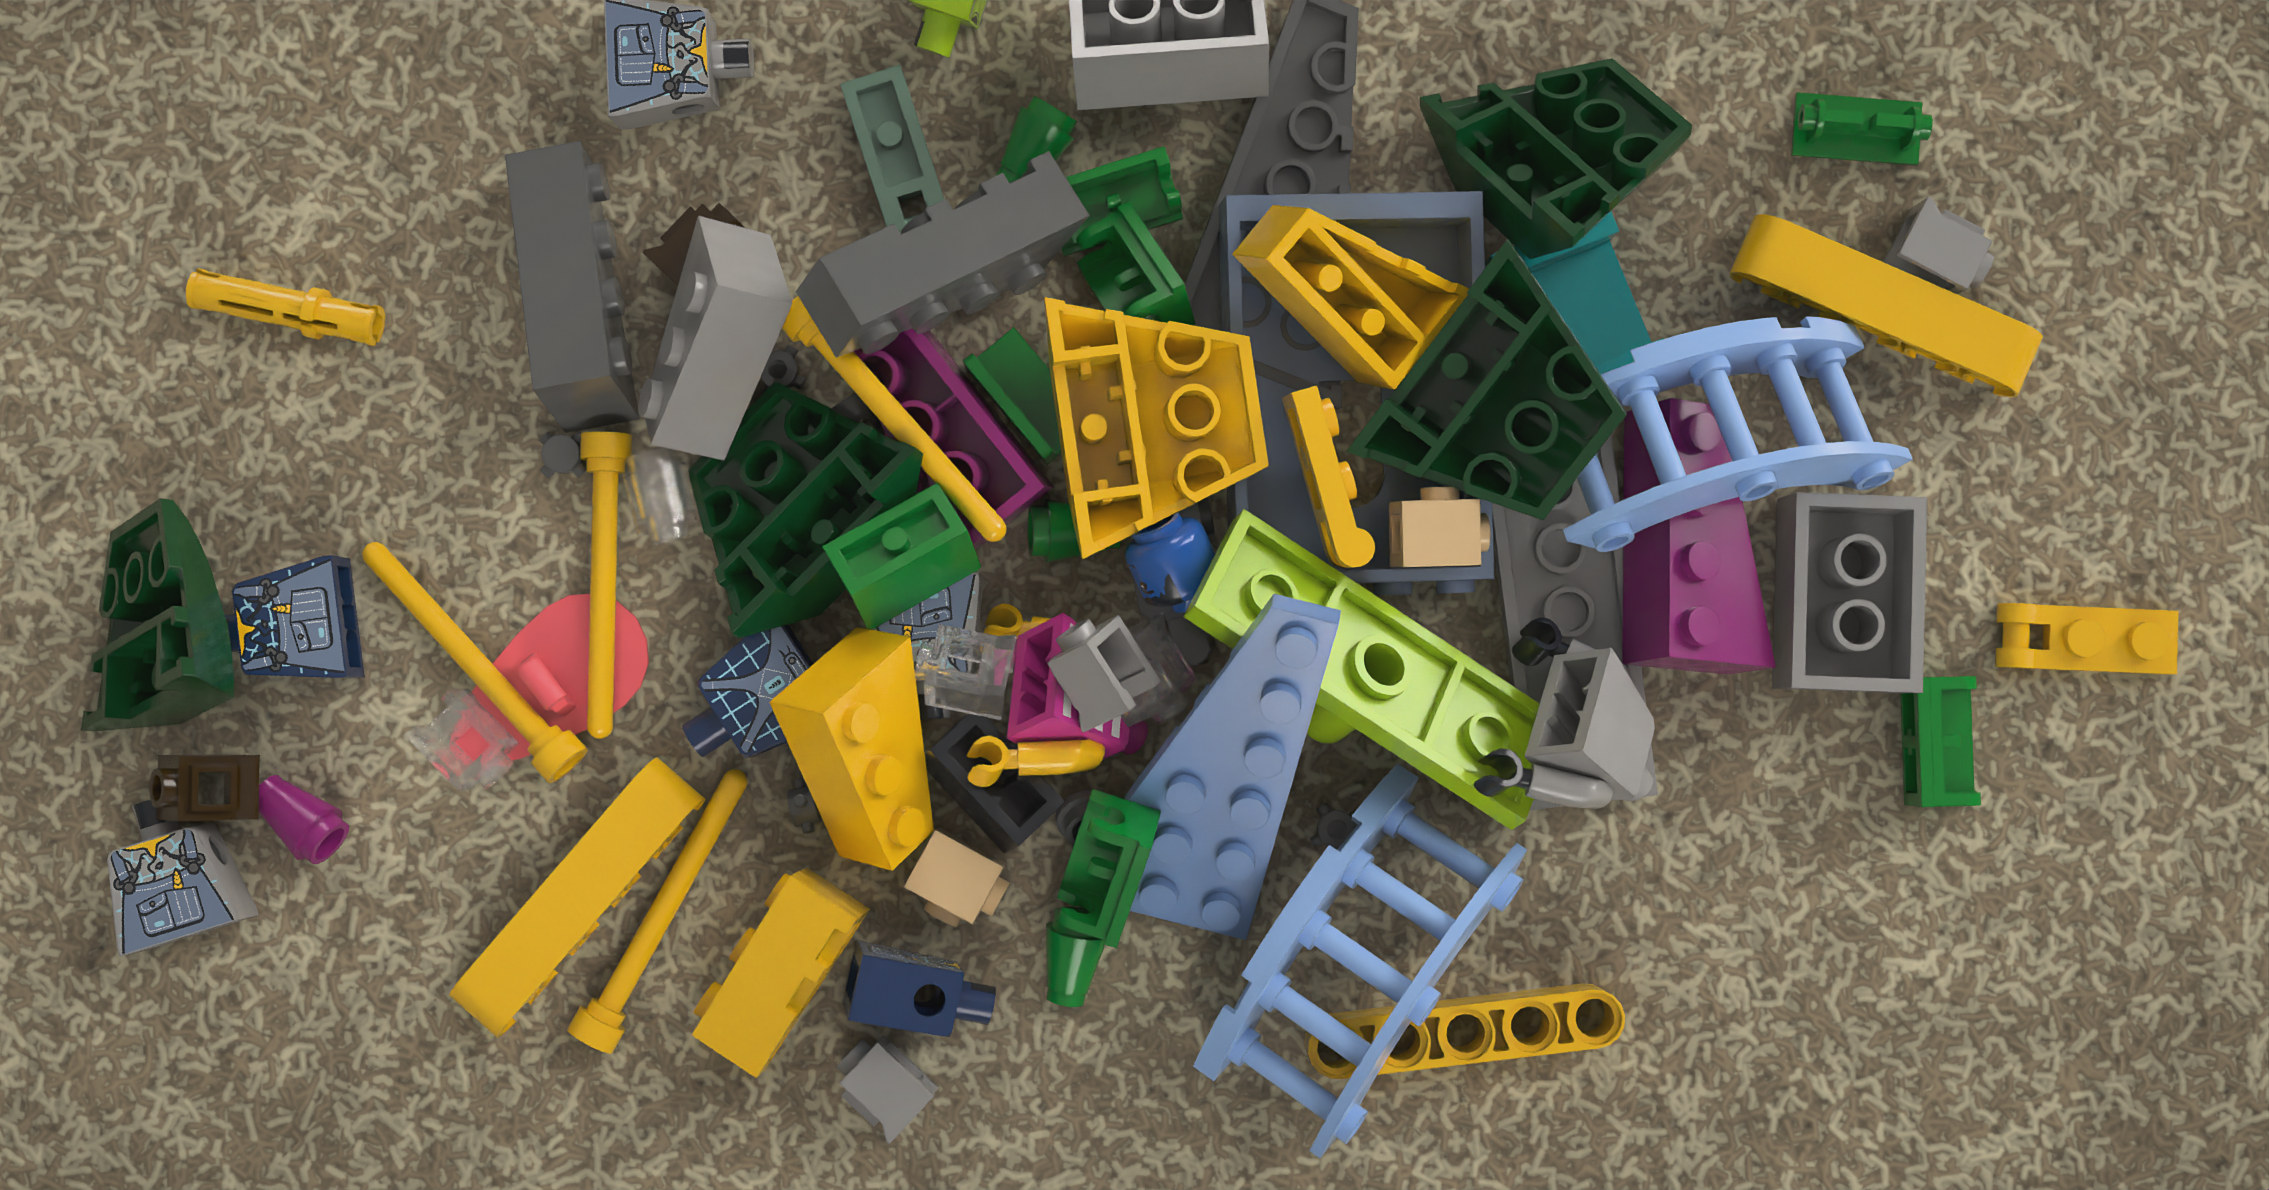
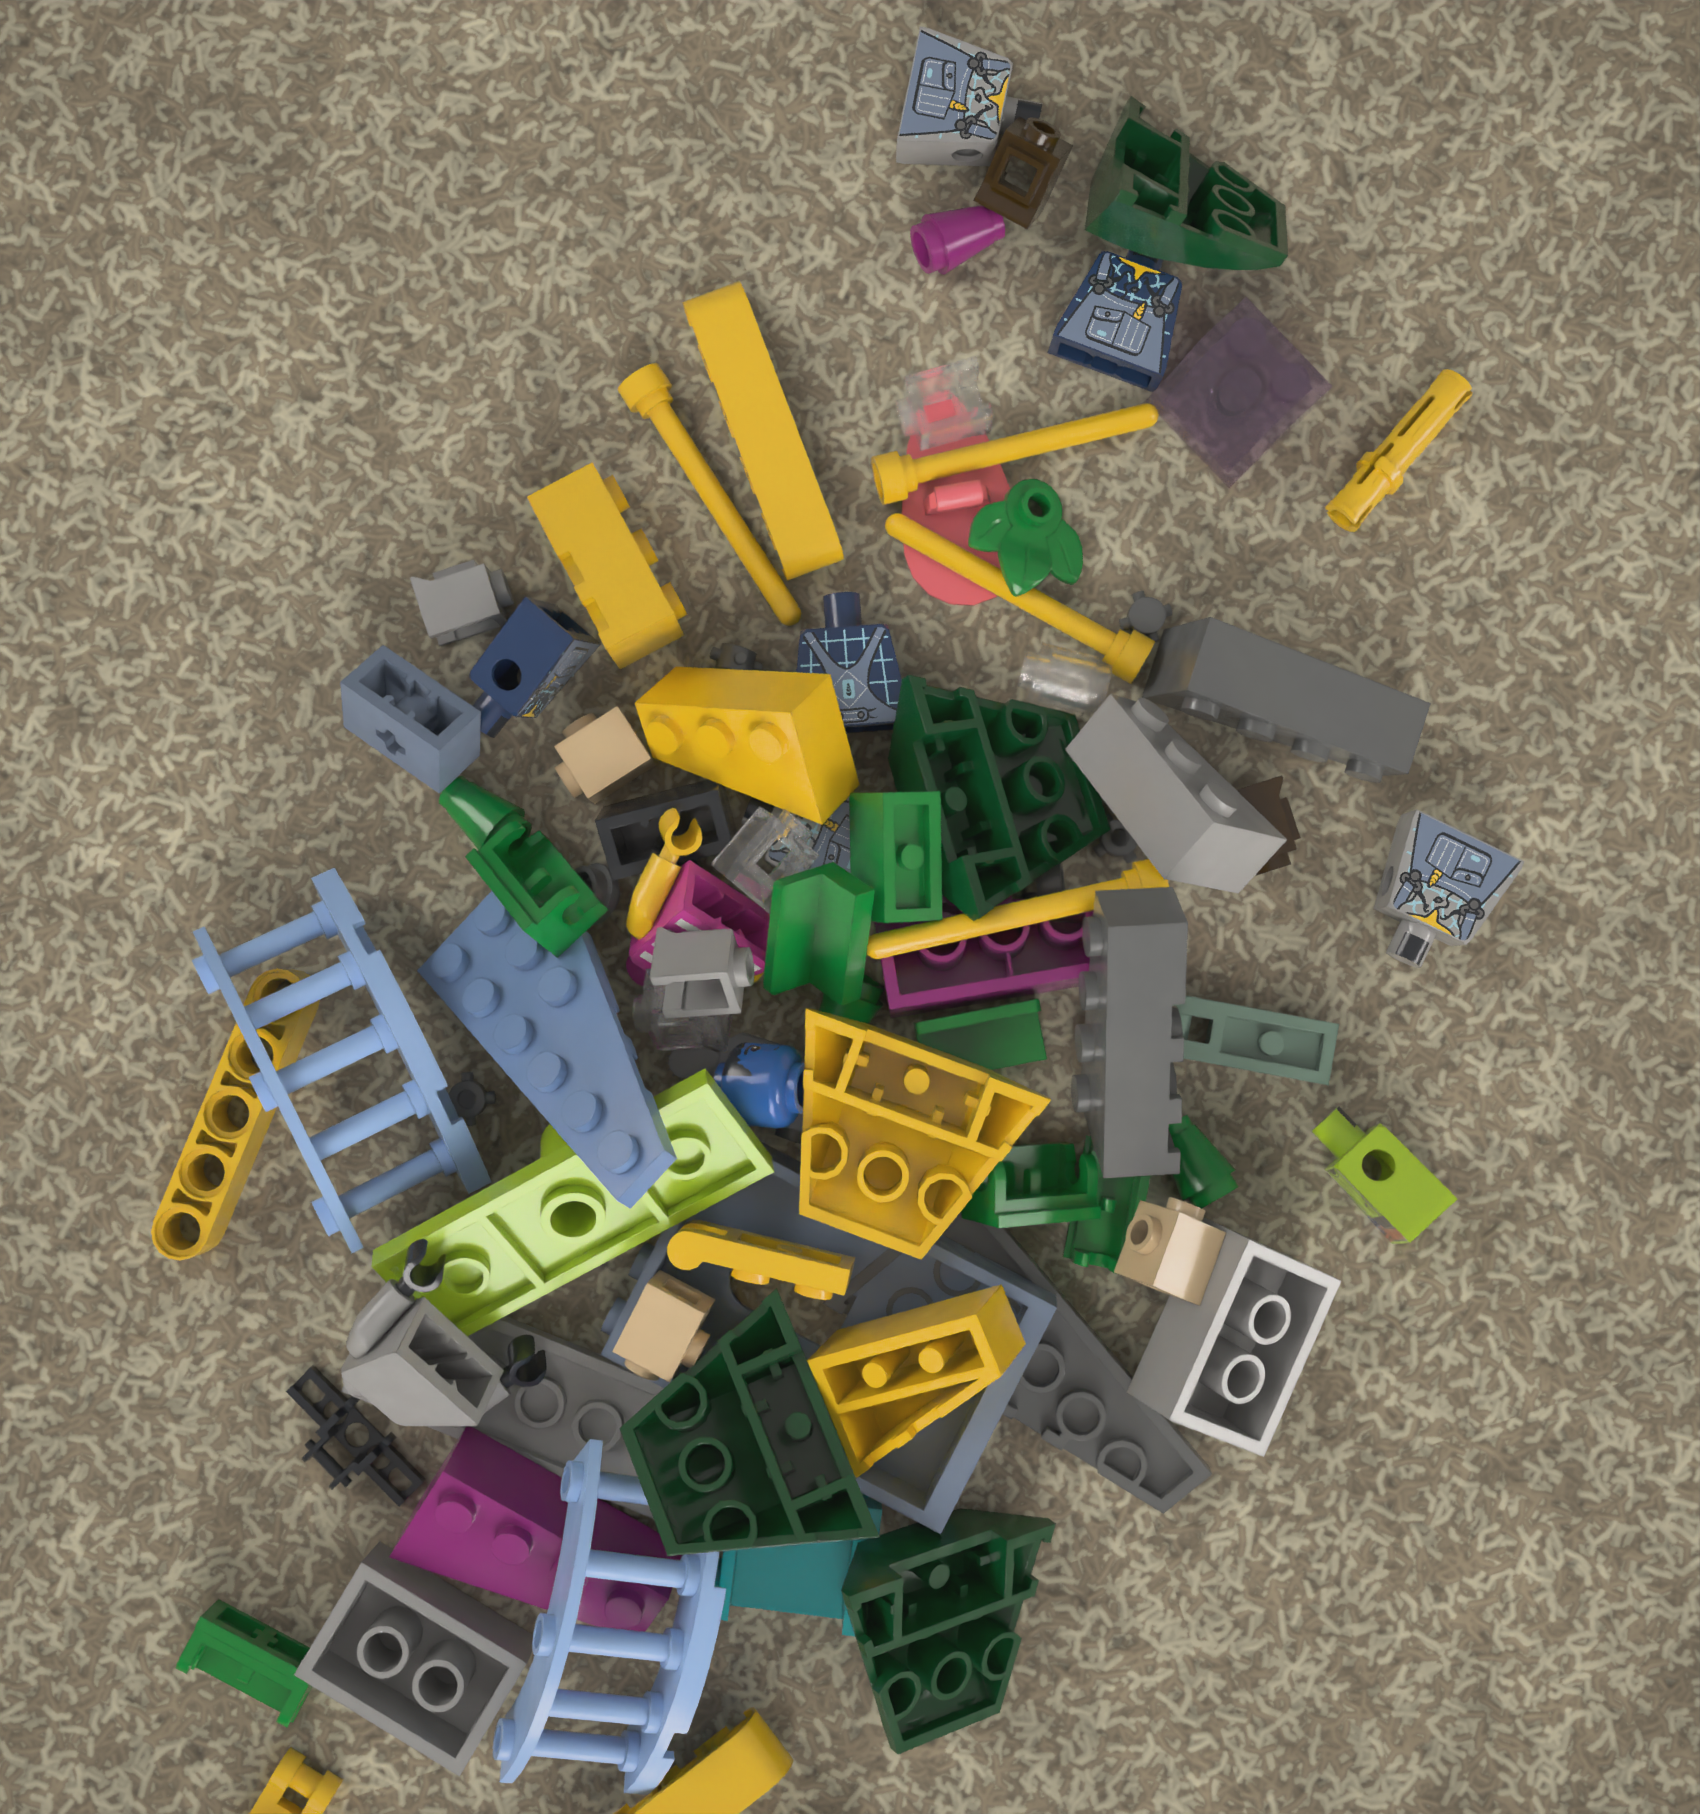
camera: 115 degrees right, 0 degrees up
(310, 479) = (1238, 392): none -> clear purple slope
(552, 597) = (1025, 543): none -> green plate
(1009, 585) = (819, 933): none -> green panel
(1018, 1070) = (411, 718): none -> sand blue brick
(1121, 123) = (1171, 1249): none -> tan brick
(1698, 787) = (362, 1461): none -> black piece

